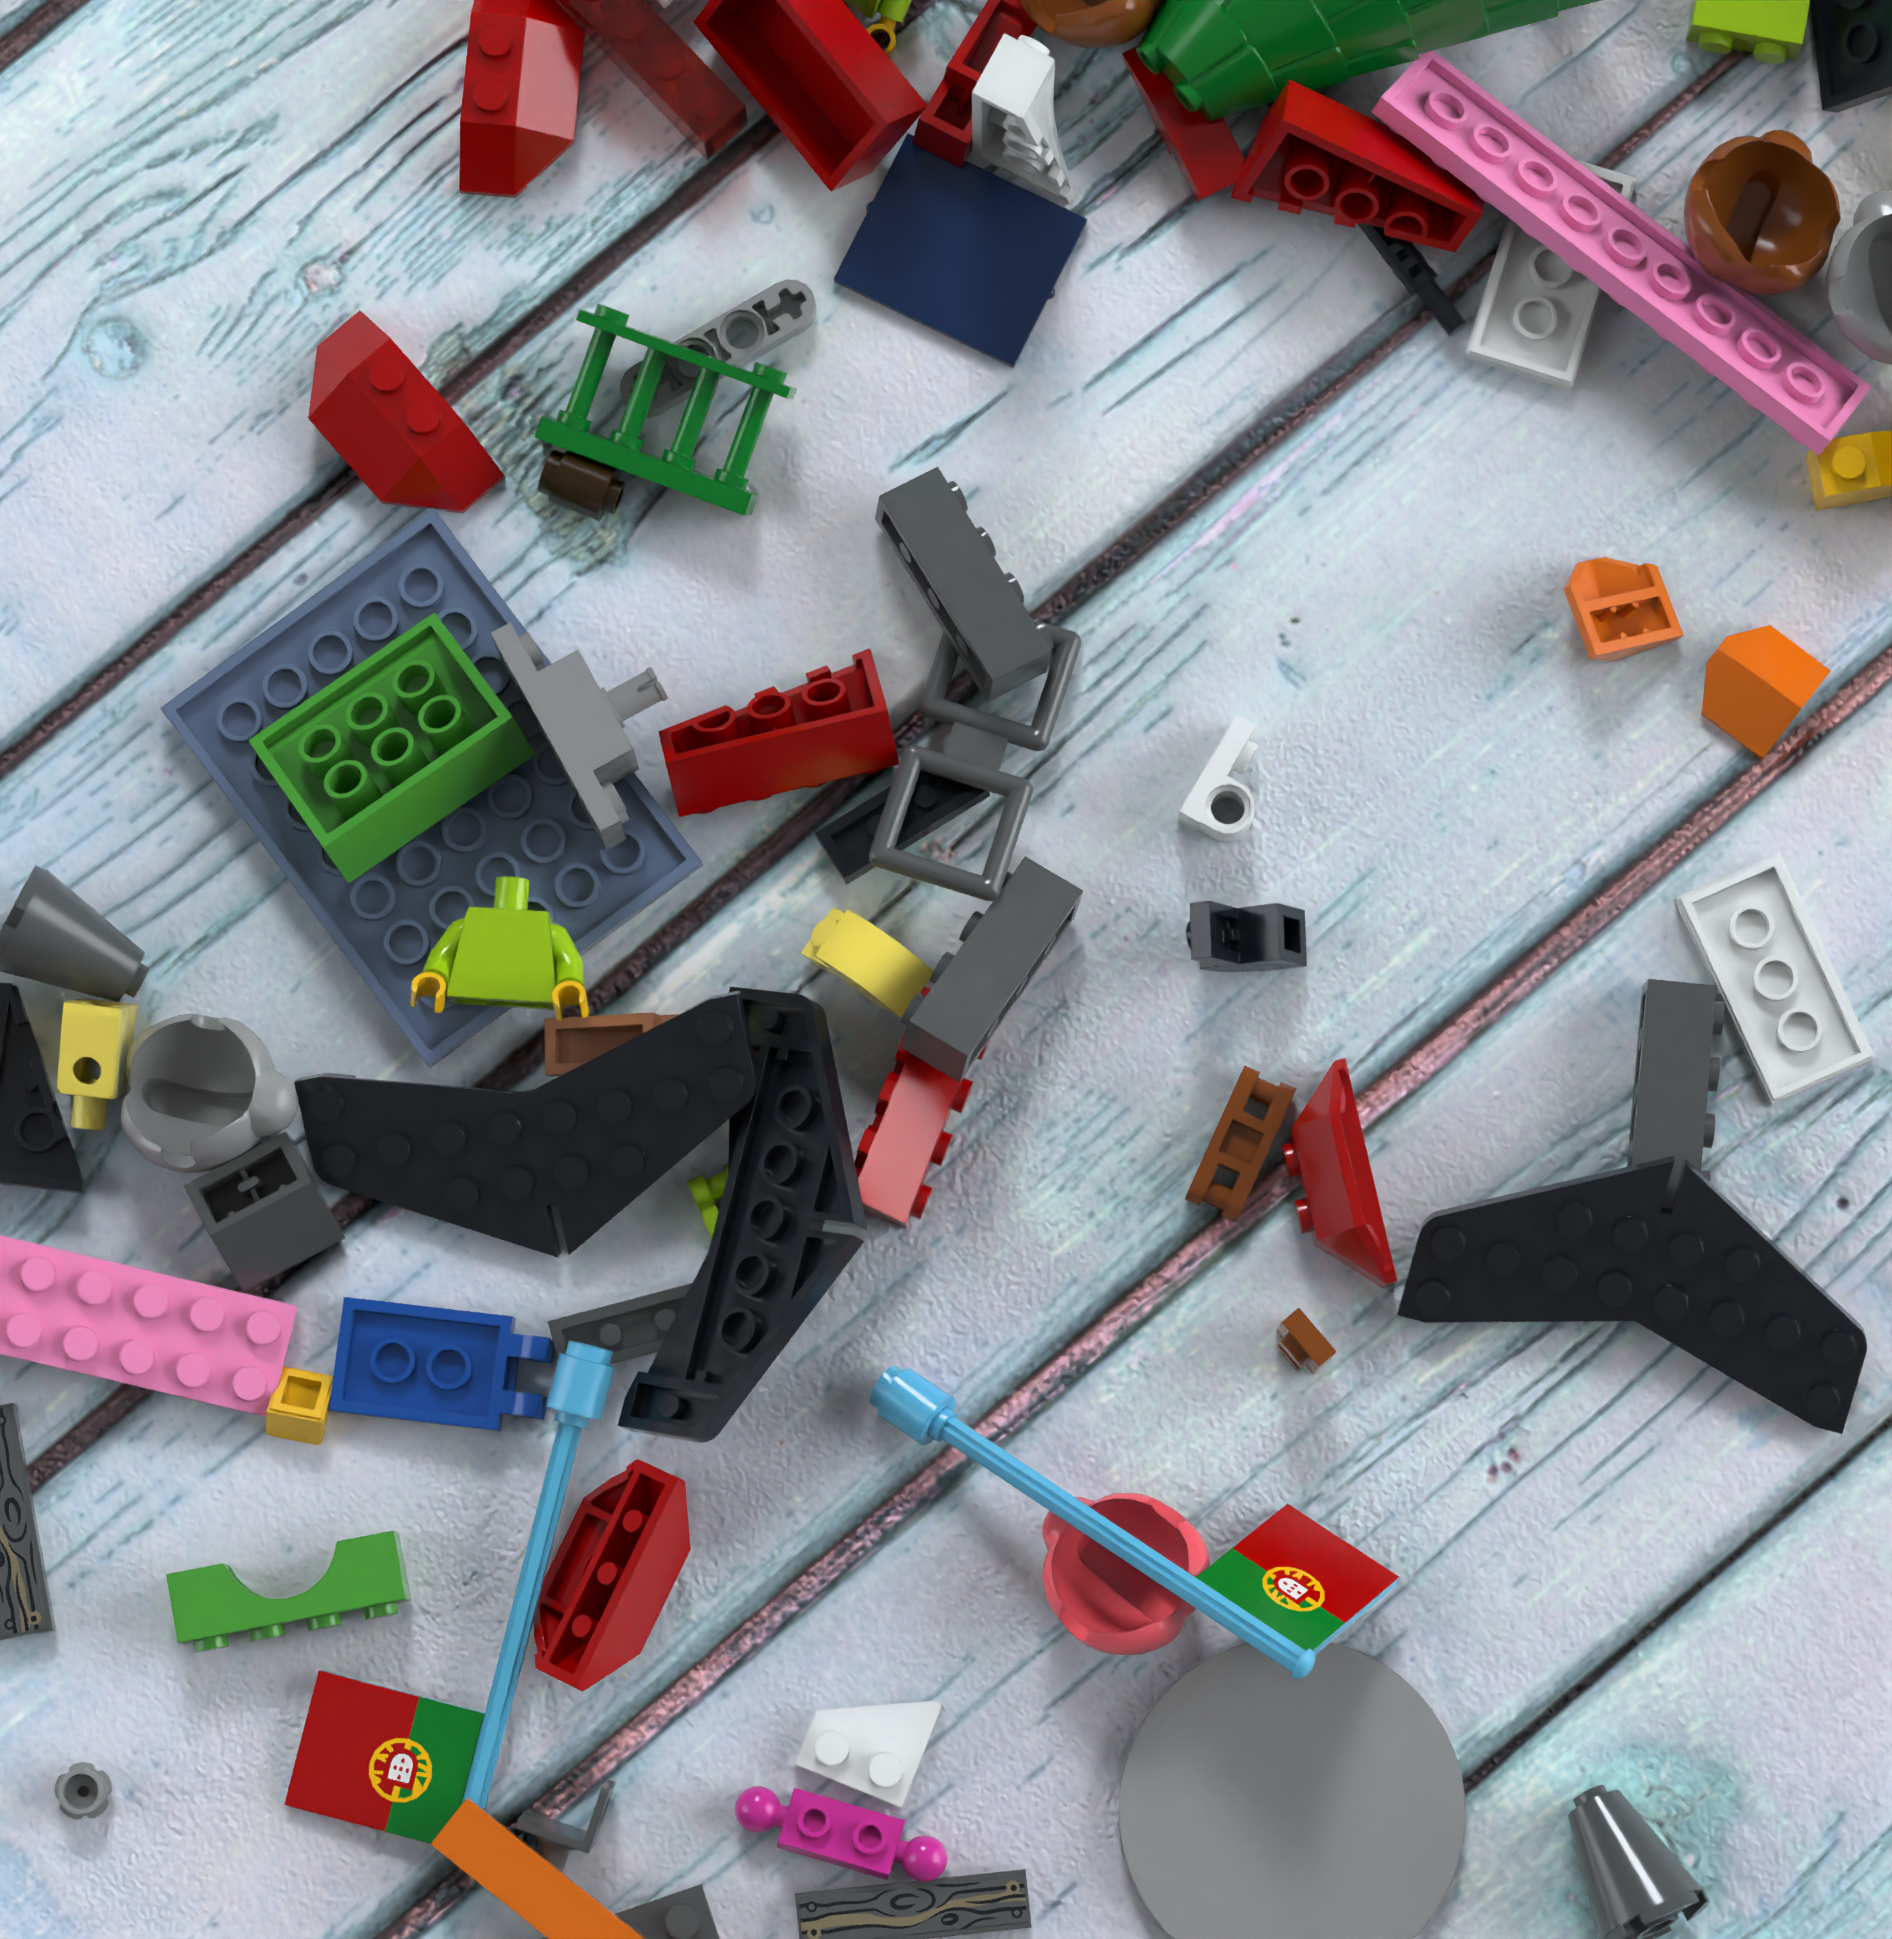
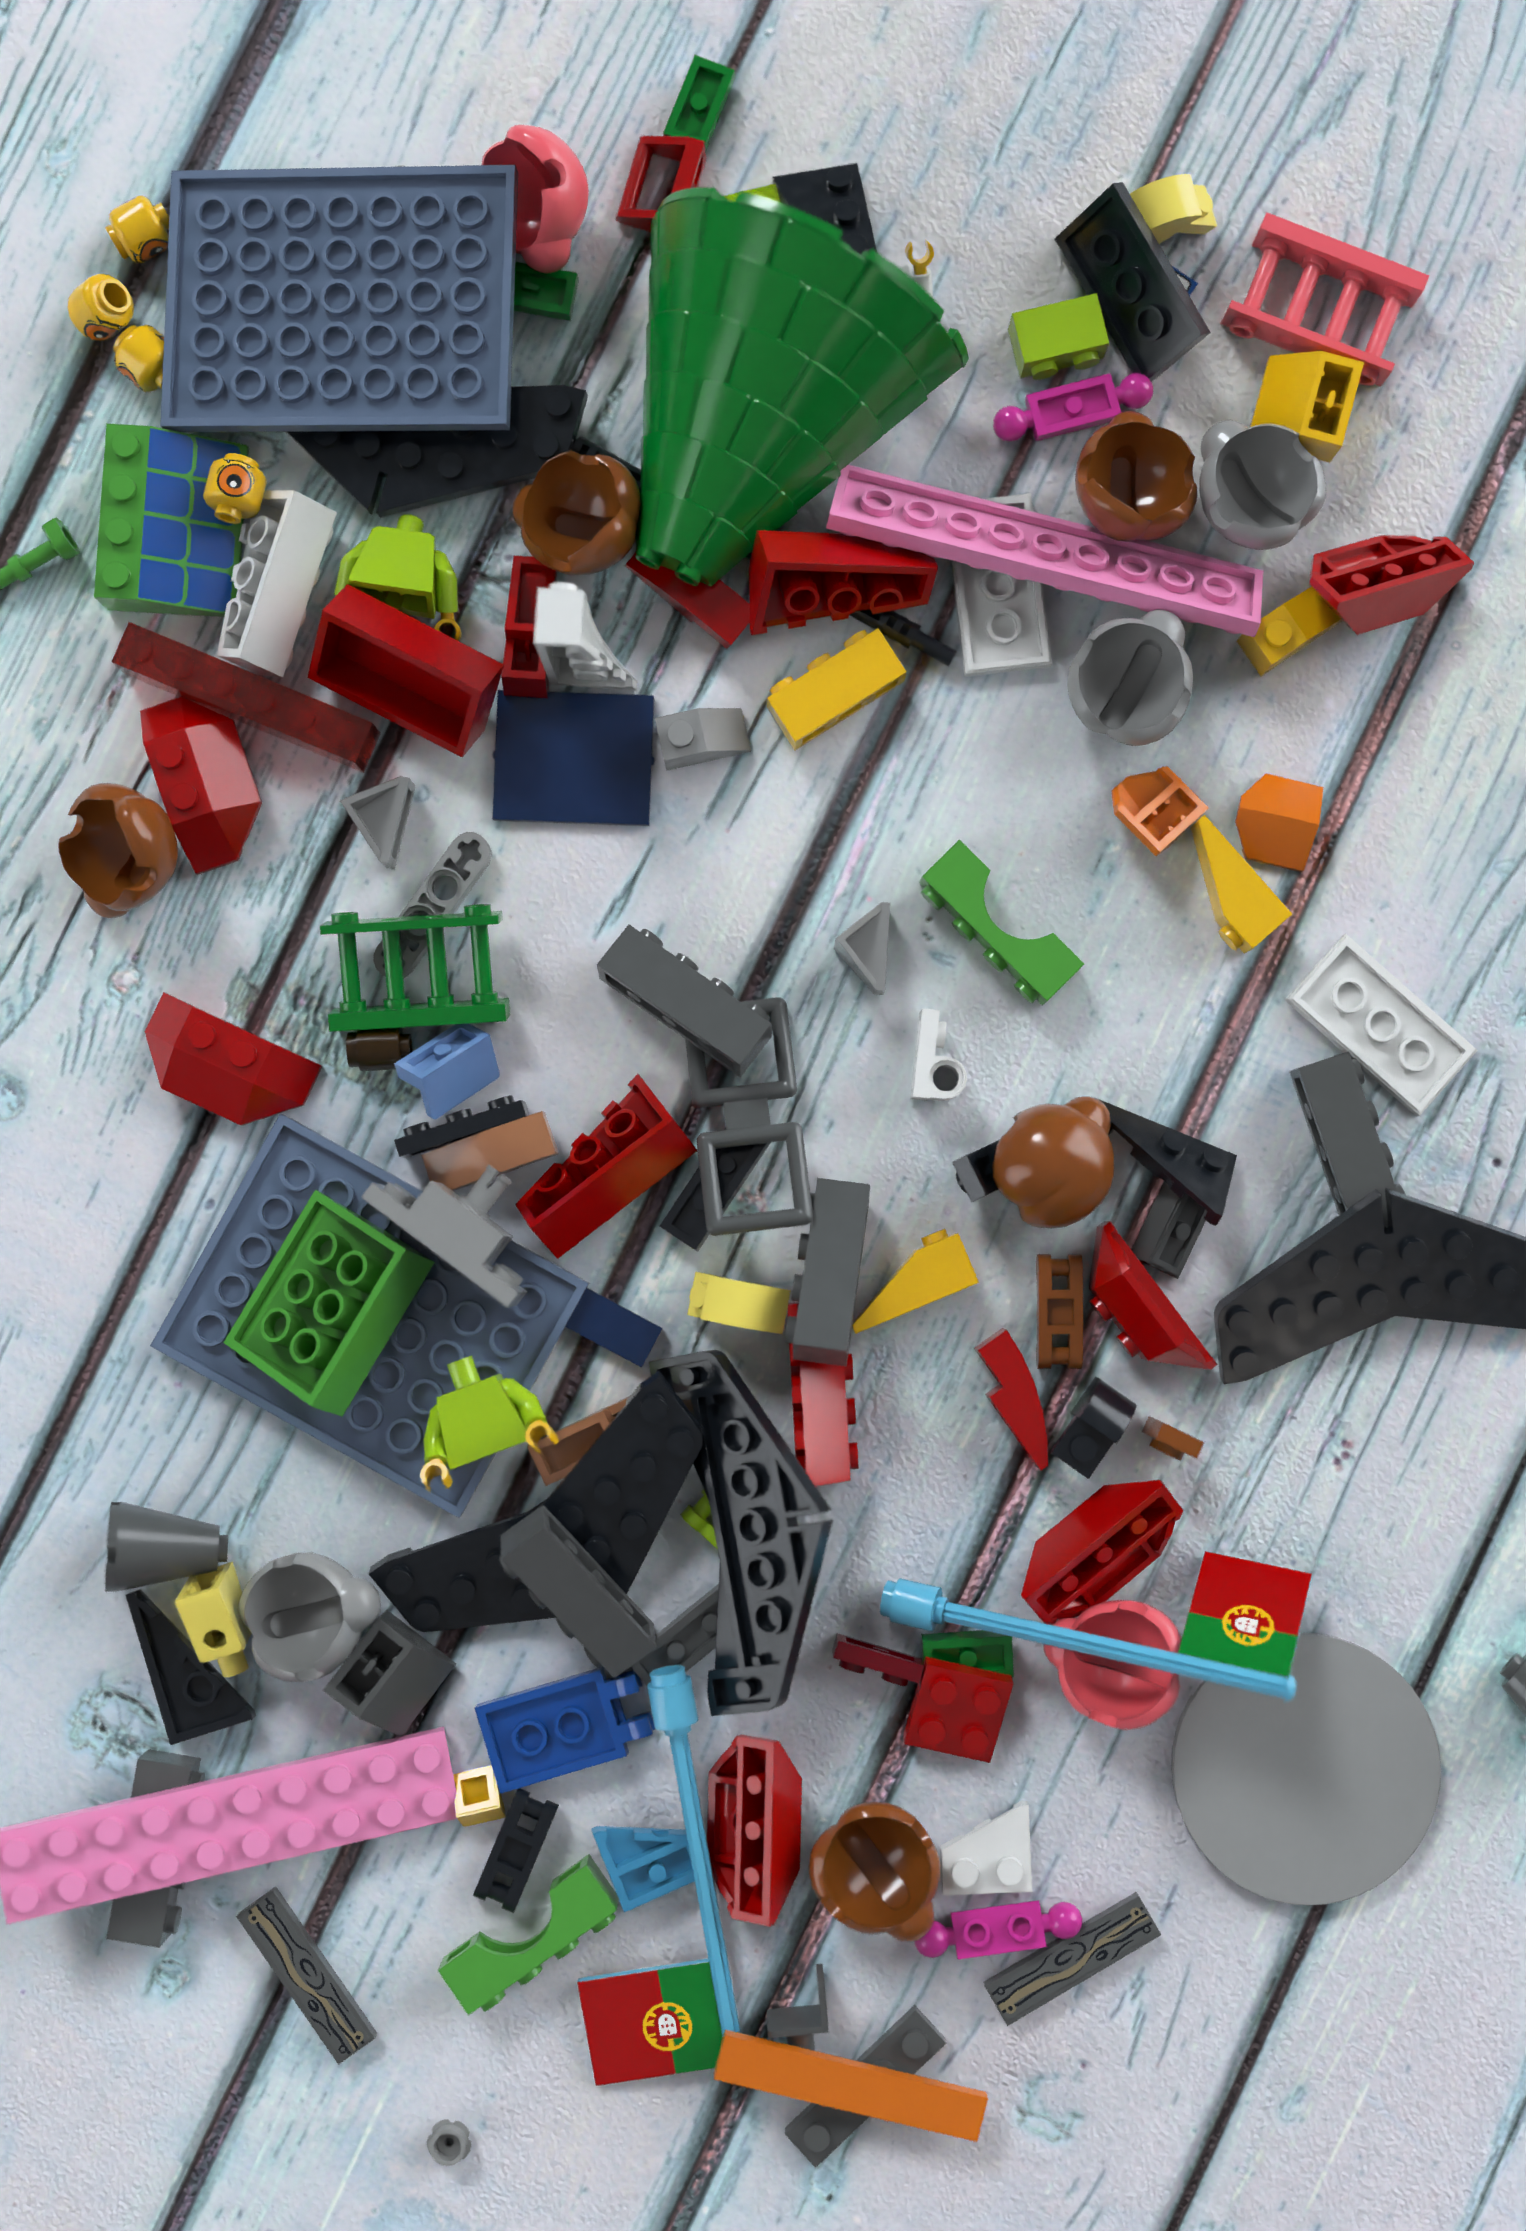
camera: 25 degrees left, 5 degrees up
(316, 1485) = (515, 1850): none -> black plate
(387, 122) = (118, 849): none -> dark orange piece
(461, 1564) = (644, 1862): none -> dark azure wing
(528, 1206) = (577, 1592): none -> dark grey brick
(636, 617) = (459, 1125): none -> black plate
(655, 542) = (450, 1068): none -> medium blue panel
(681, 659) = (501, 1147): none -> nougat slope
(708, 218) = (382, 816): none -> light grey slope
(708, 930) = (614, 1327): none -> dark blue tile
(731, 1687) = (877, 1871): none -> dark orange piece
(858, 1469) = (858, 1655): none -> dark red plate
(910, 1552) = (958, 1709): none -> red plate
(950, 1495) = (971, 1648): none -> green plate
(1100, 1031) = (924, 1277): none -> yellow slope
(1121, 289) = (701, 736): none -> light grey slope
(1145, 1215) = (1016, 1395): none -> red slope
(1164, 1436) = (1099, 1548): none -> red wedge
(1203, 615) = (866, 947): none -> light grey slope
(1217, 1291) = (1098, 1423): none -> black brick
(1303, 302) = (835, 687): none -> yellow brick
(1312, 961) = (1056, 1162): none -> dark orange piece
(1397, 725) = (1037, 964): none -> bright green arch
(1420, 1106) = (1169, 1232): none -> dark grey slope
(1455, 1019) = (1178, 1159): none -> black wing
(1654, 441) = (1132, 678): none -> light grey piece
(1671, 757) = (1238, 896): none -> yellow slope
(1730, 99) = (1072, 407): none -> dark pink plate

